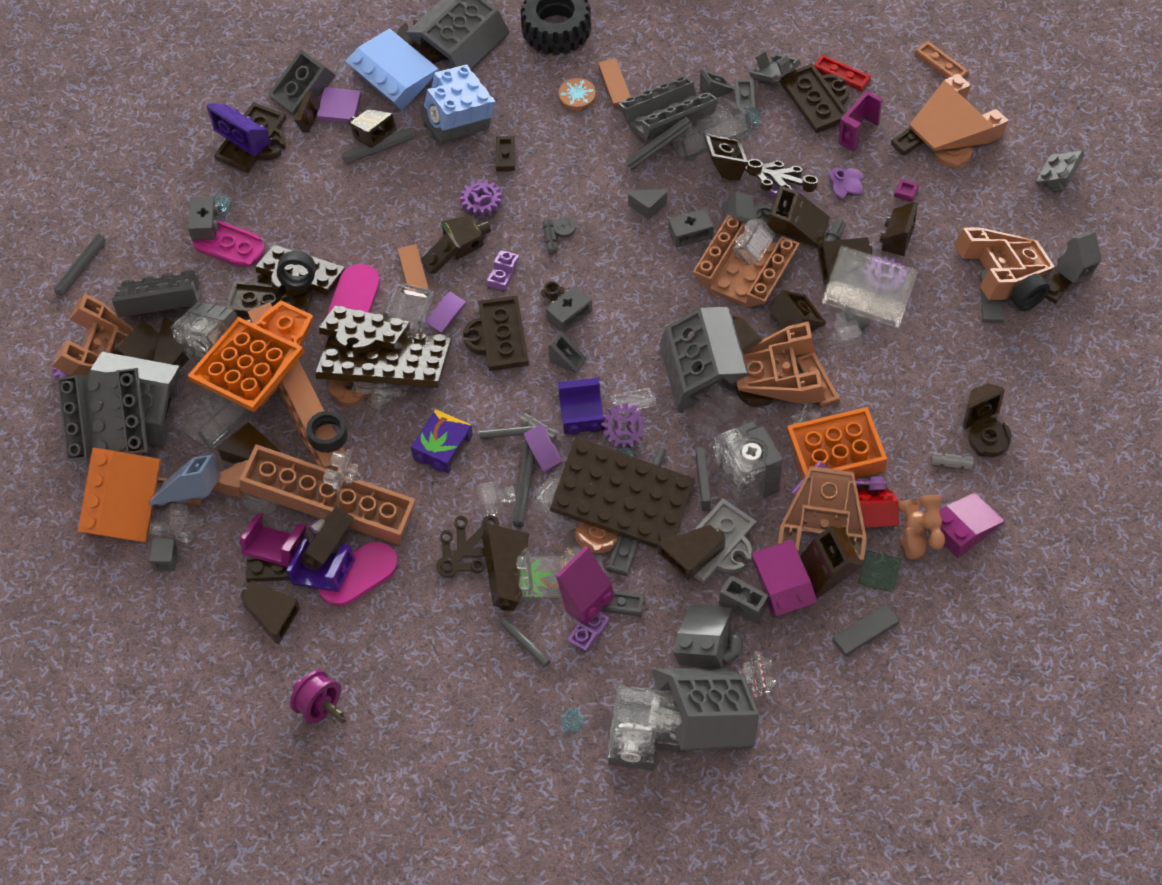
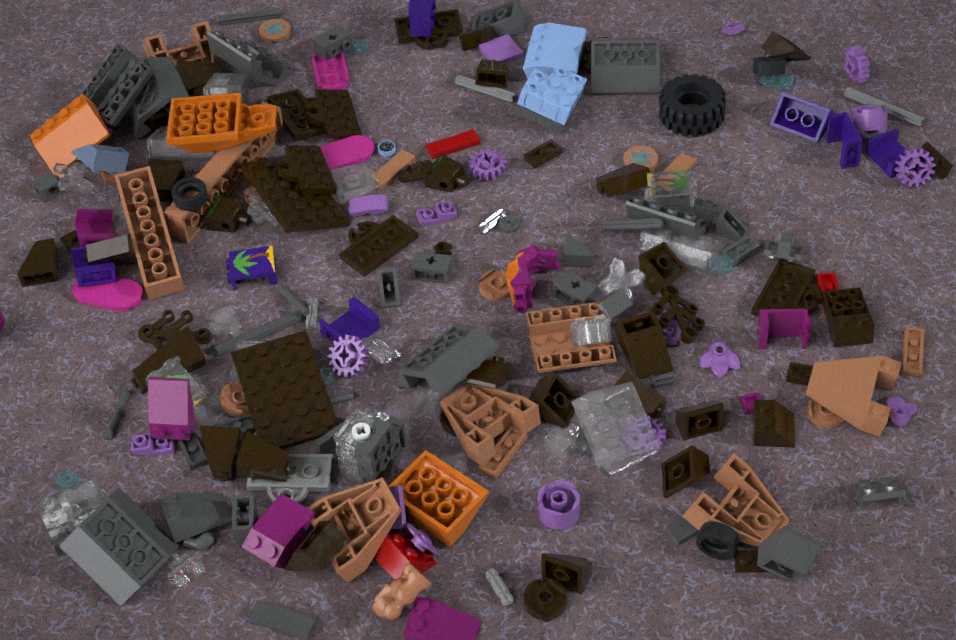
camera: 55 degrees right, 10 degrees down
(123, 255) = (275, 30): none -> nougat tile
(291, 281) = (319, 103): black tyre -> none
(337, 477) = (164, 220): clear hips -> none
(357, 424) = (226, 215): none -> dark brown torso
(381, 259) = (386, 148): none -> tile
(425, 209) = (453, 144): none -> red tile
(543, 448) = (290, 320): medium lavender slope -> none
(599, 116) = (623, 180): none -> dark brown slope
(625, 282) = (498, 289): none -> nougat tile
(649, 251) = (519, 271): none -> magenta hips
(650, 577) = (222, 450): none -> dark brown slope
(667, 76) = (672, 184): none -> clear panel
(703, 184) = (620, 279): none -> clear plant
(879, 75) = (848, 317): none -> dark brown slope
(879, 571) = (349, 598): clear green piece -> none
(911, 372) = (559, 505): none -> medium lavender brick
(940, 192) = (772, 424): none -> dark brown slope
(943, 274) = (684, 470): none -> dark brown slope
(993, 102) = (900, 411): none -> medium lavender plate

